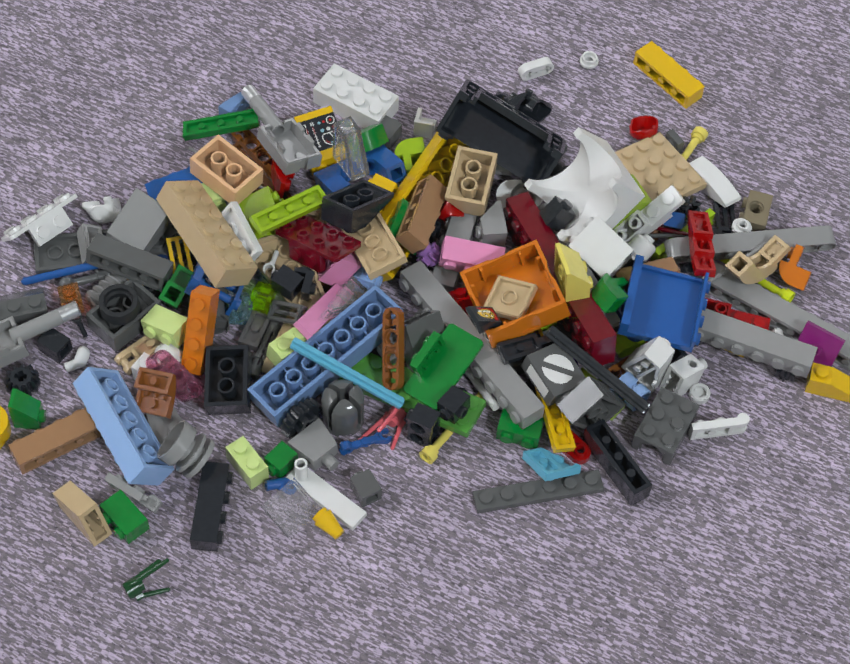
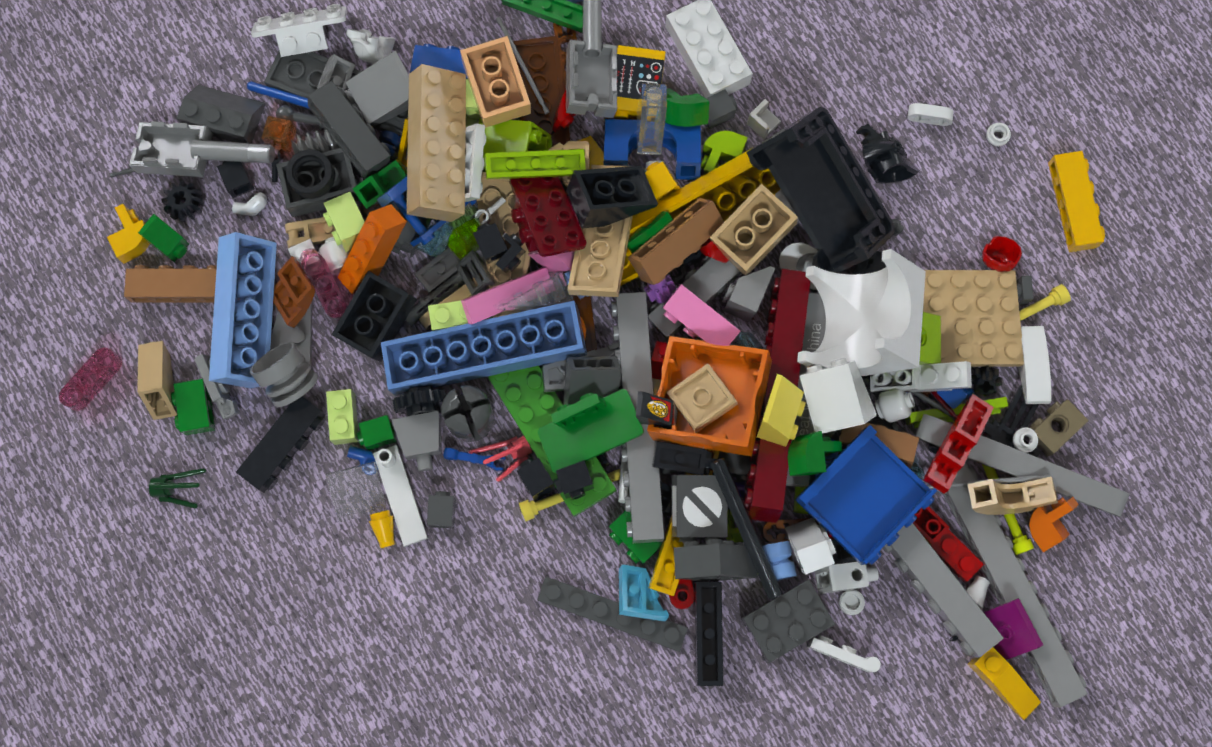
camera: 35 degrees right, 20 degrees up
(26, 531) = (78, 382): none -> clear pink beam
(347, 373) = (485, 385): medium azure axle -> none
(389, 348) = (561, 359): dark orange beam -> none
(557, 213) = (821, 323): black brick -> none

